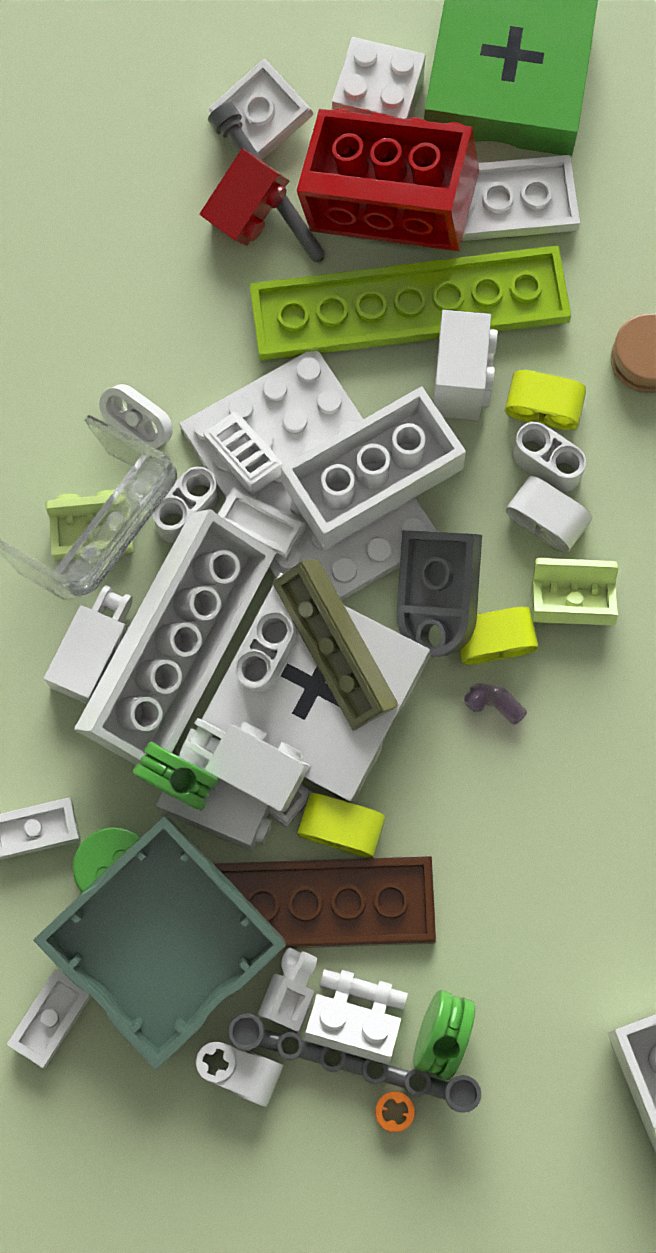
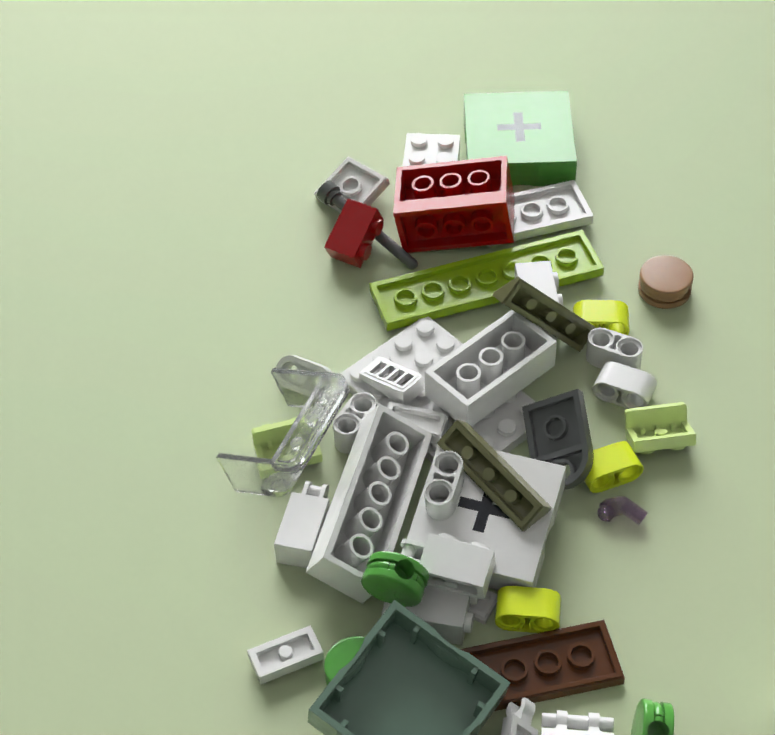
camera: 10 degrees left, 25 degrees down
(461, 401) = (545, 312): none -> olive slope

